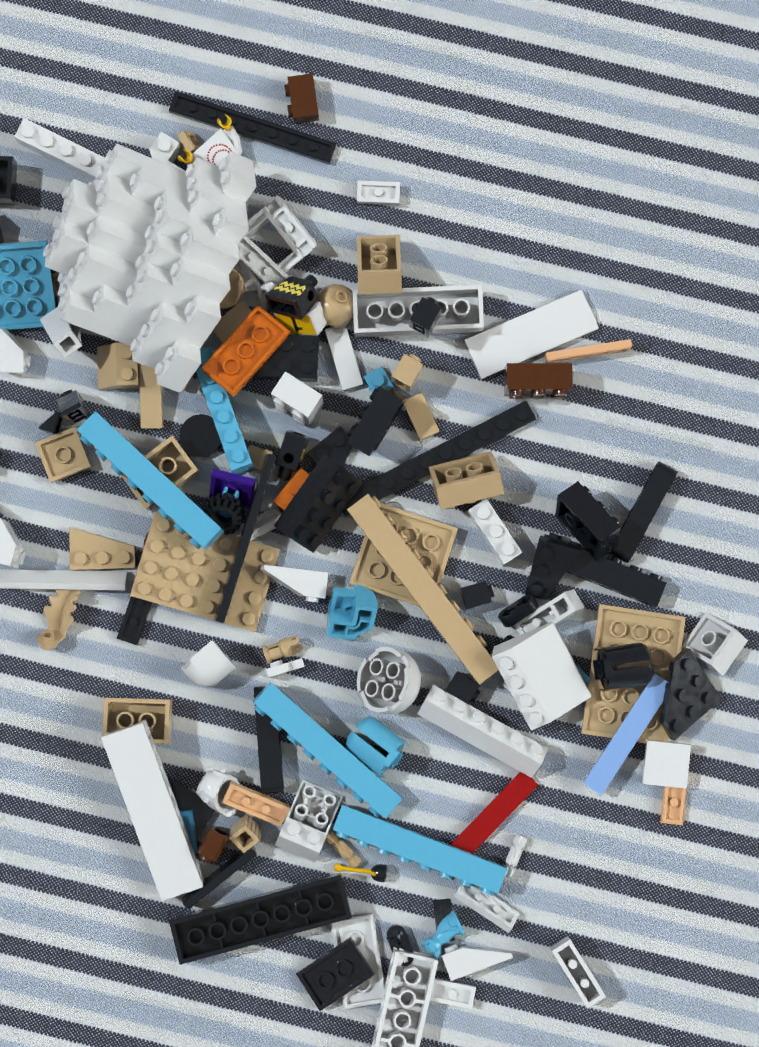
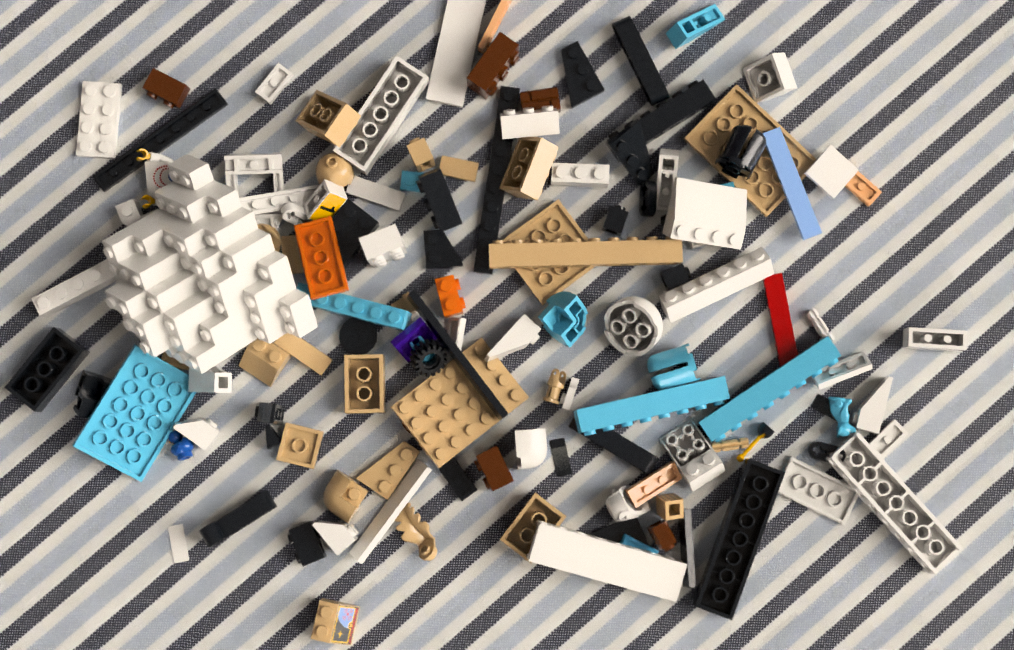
camera: 50 degrees left, 0 degrees up
(44, 527) = (343, 496): none -> tan brick
(150, 480) = (366, 393): medium azure brick -> none
(165, 646) = (494, 469): none -> reddish brown brick
(188, 141) = (136, 192): tan plate -> none
(221, 700) = (560, 457): none -> black sticker
(231, 59) = (99, 120): none -> white plate
(293, 297) = (307, 196): black torso -> none
(296, 445) = (415, 271): black torso -> none
(318, 503) = (470, 284): black brick -> none
(335, 974) = (815, 513): black tile -> none
(425, 316) = (391, 109): black brick -> none
(508, 450) = (529, 122): none -> white brick
(535, 447) = (540, 98): none -> reddish brown brick
(588, 520) = (620, 102): black brick -> none
(589, 463) = (580, 75): none -> black wing
(686, 694) = (793, 122): black plate -> none
(712, 539) = (694, 26): none -> medium azure slope

